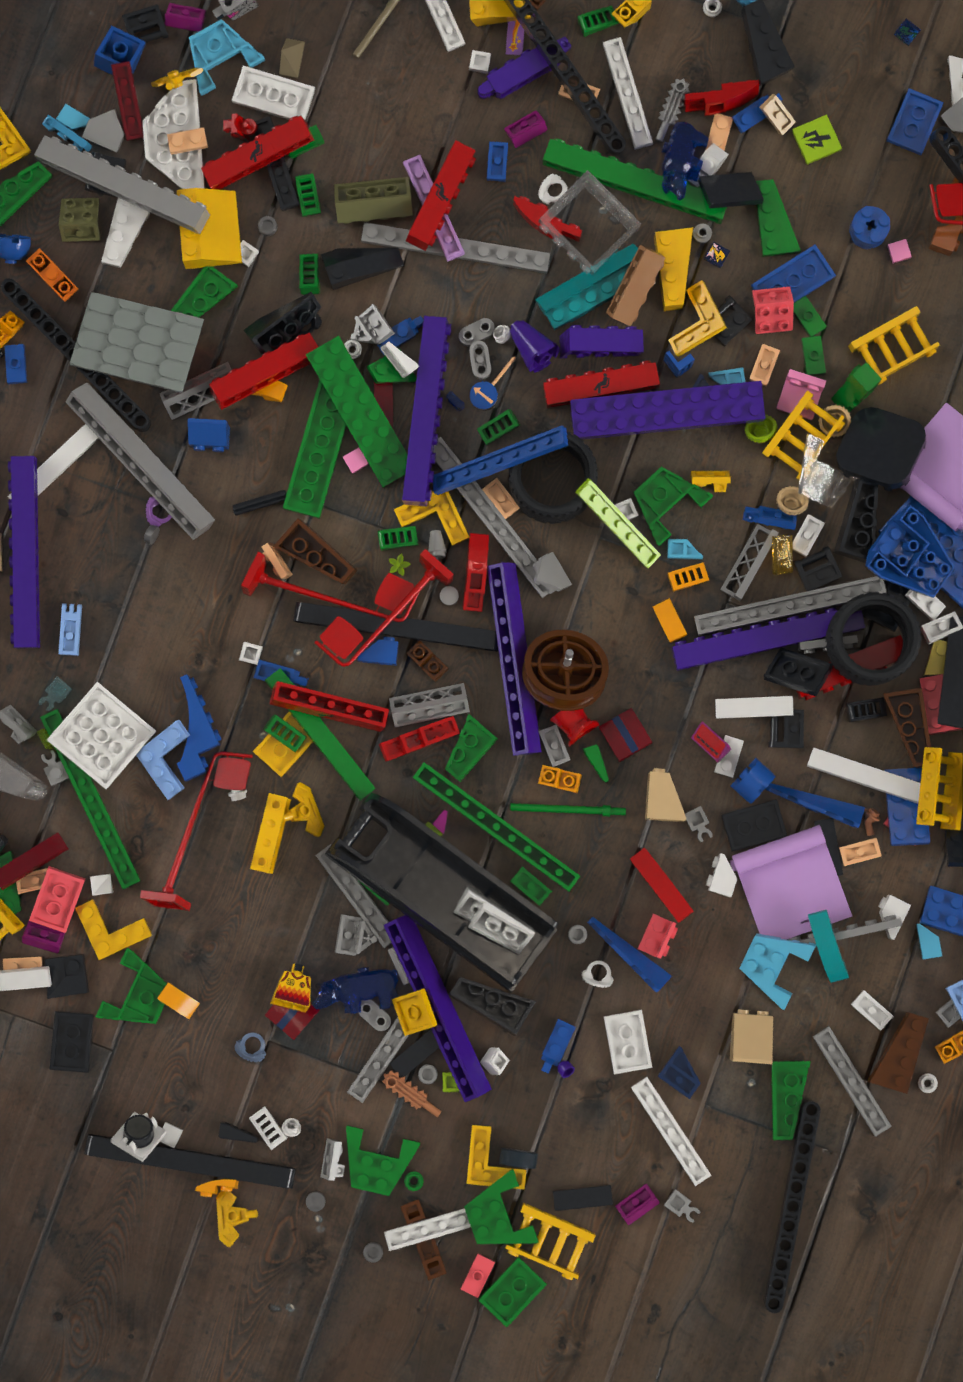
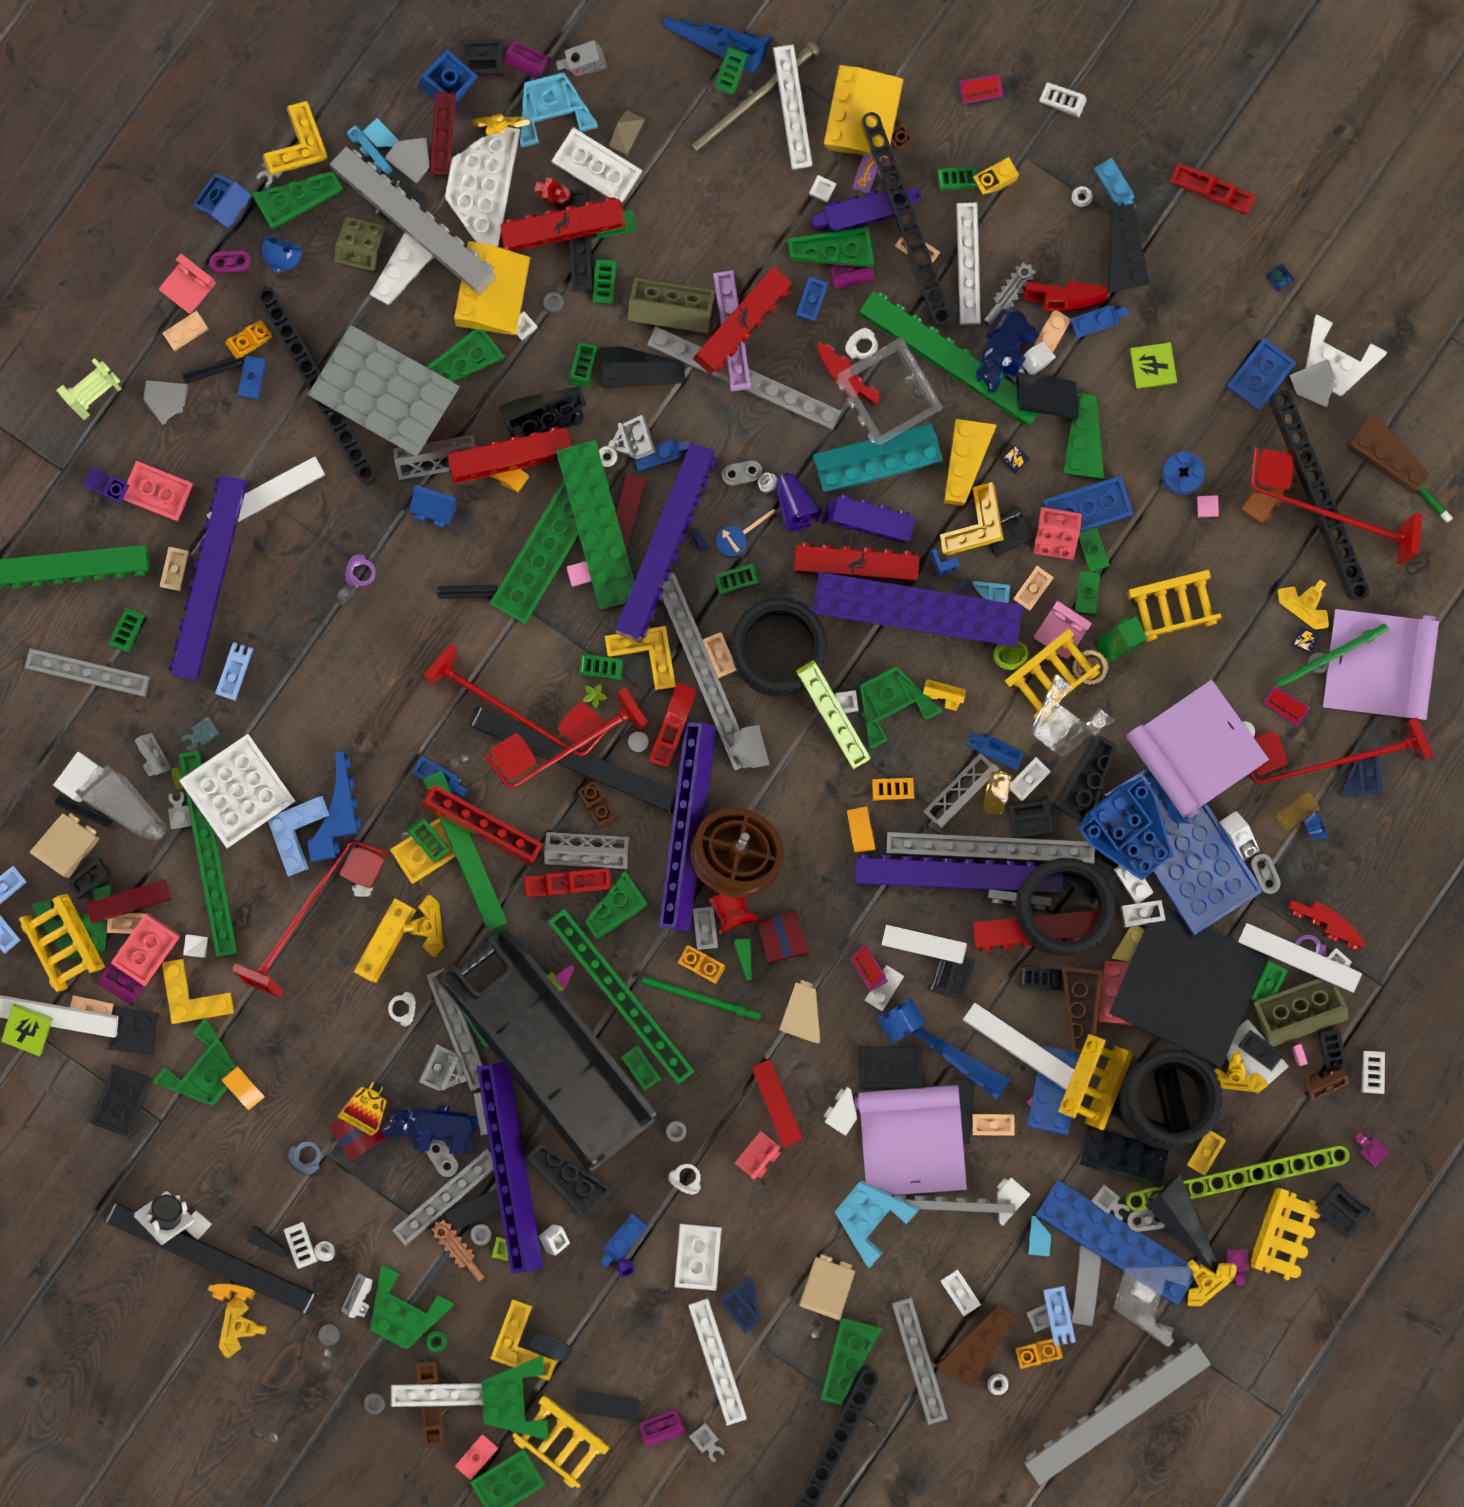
camera: 10 degrees right, 0 degrees up
(52, 275) = (314, 295): orange slope -> none
(140, 460) = (354, 514): light grey brick -> none
(187, 141) = (493, 192): light nougat plate -> none
(250, 653) = (415, 746): white slope -> none
(280, 567) = (466, 651): light nougat plate -> none
(308, 899) = (409, 999): none -> white piece
(311, 549) = (509, 657): reddish brown wedge -> none
(381, 652) = (551, 782): blue slope -> none
(383, 371) = (642, 488): green wing -> none
(399, 360) = (655, 487): white slope -> none
(414, 1012) = (484, 1166): yellow plate -> none
(436, 545) = (639, 685): light grey cone -> none
(480, 360) = (737, 504): light grey plate -> none
(493, 921) = (591, 1094): white slope -> none
(500, 460) = (727, 616): blue plate -> none
(505, 110) = (839, 248): none -> green wing
(635, 285) = (920, 470): medium nougat brick -> none
(643, 966) = (735, 1183): blue wedge -> none
(682, 550) = (895, 759): medium azure tile -> none
(697, 820) = (832, 1046): light grey plate -> none
(702, 239) = (1003, 438): light grey plate -> none
(777, 114) = (1118, 329): tan plate -> none
(791, 501) = (1021, 740): tan hat -> none
(798, 671) = (979, 919): black tile -> none
(828, 946) = (931, 1214): teal slope -> none
(871, 816) = (1015, 1091): nougat plate -> none
(881, 448) = (1130, 709): black tile -> none

